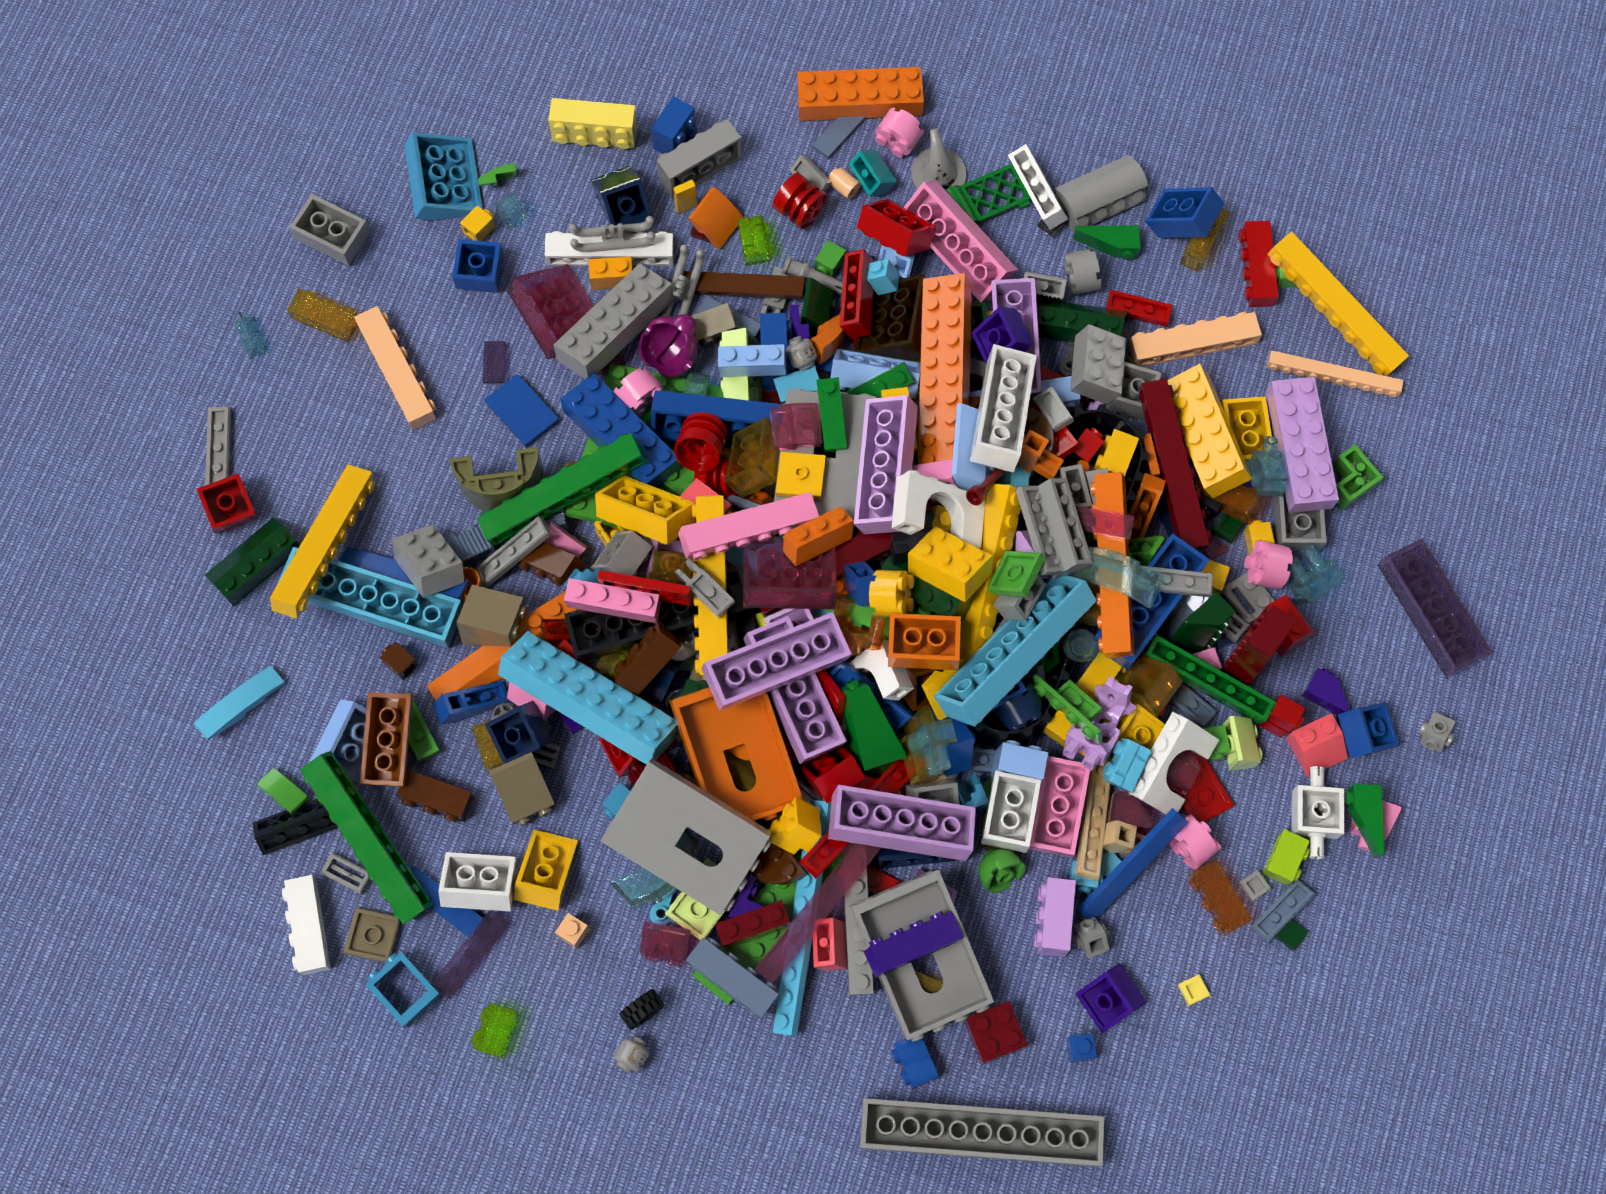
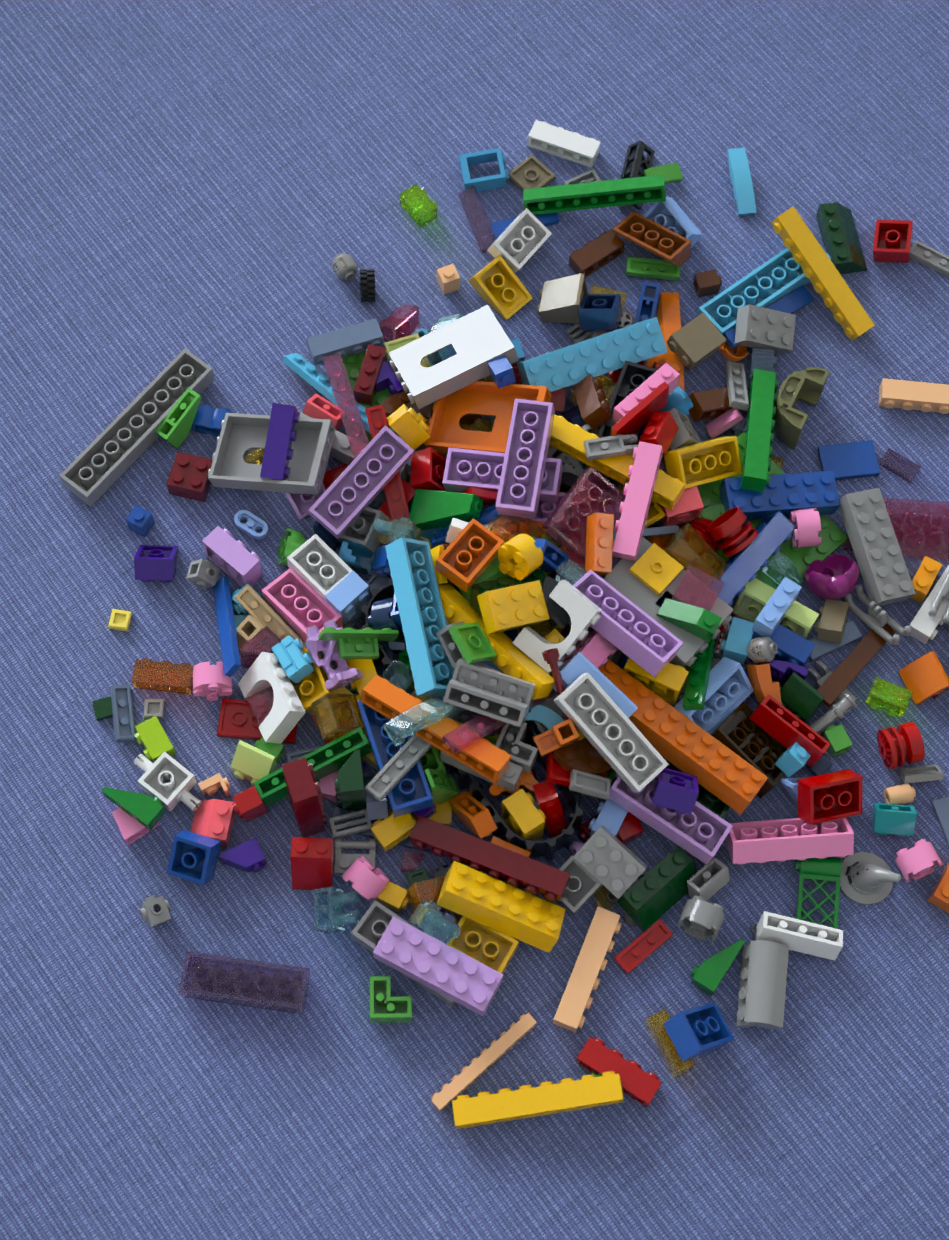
camera: 125 degrees right, 5 degrees down
(654, 561) = (660, 430): none -> red slope
(682, 761) = (501, 372): none -> blue brick
(867, 544) = (569, 571): none -> clear light blue brick
(944, 1089) = (179, 420): none -> bright green slope
(1000, 933) = (252, 525): none -> light blue plate
(1284, 771) = (213, 784): none -> light nougat bracket

